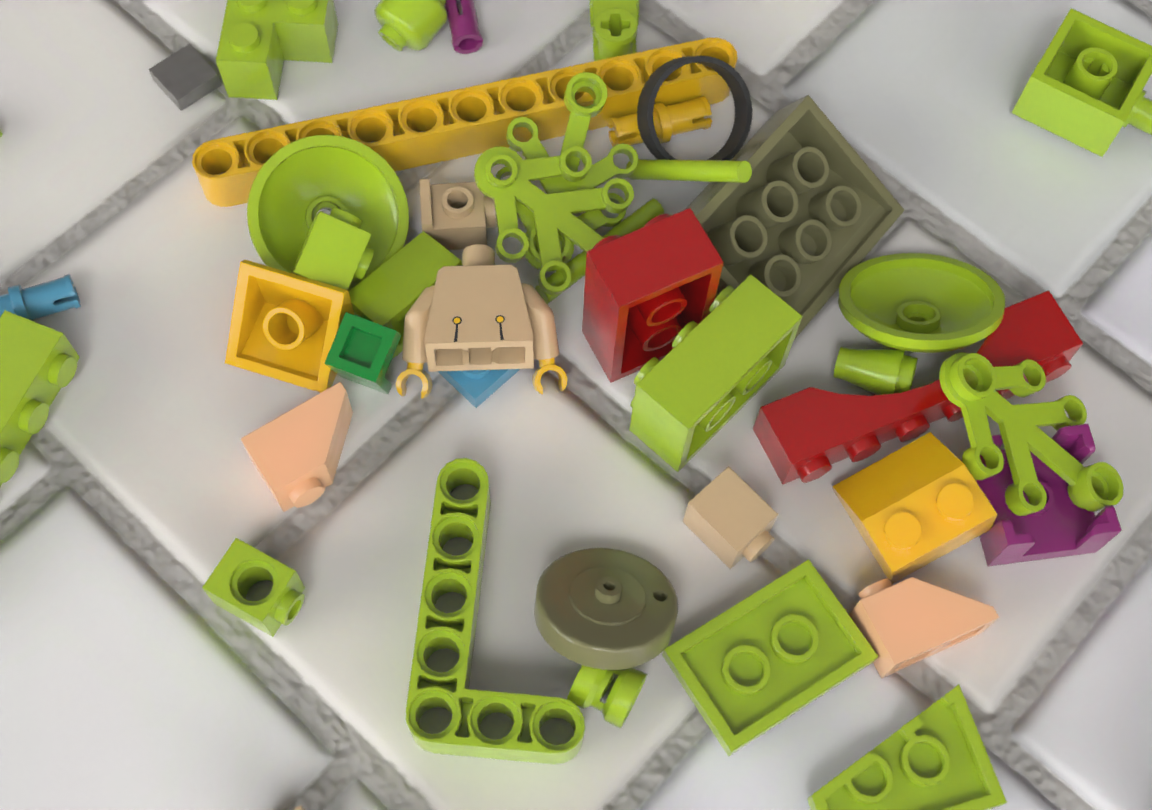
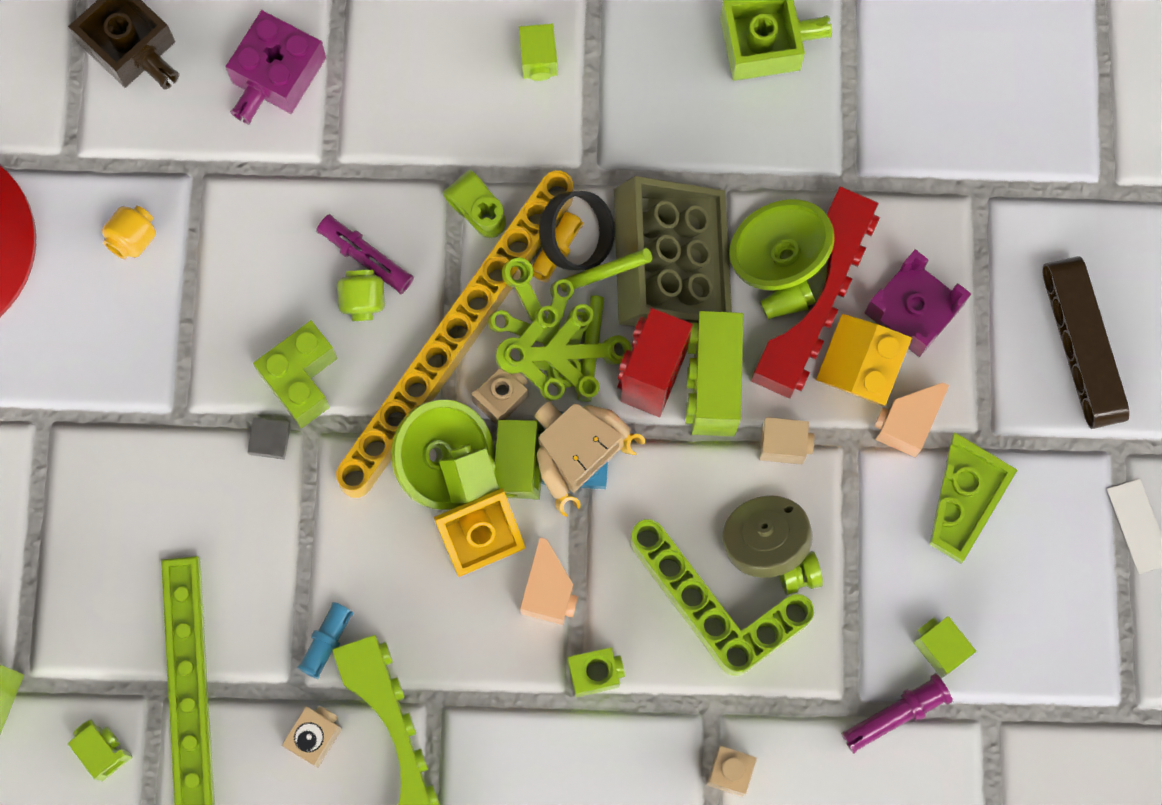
camera: 40 degrees left, 10 degrees up
(363, 352) = (535, 511): green panel -> none
(769, 656) = (859, 492): lime plate -> none
(973, 386) = (938, 278): lime plant -> none

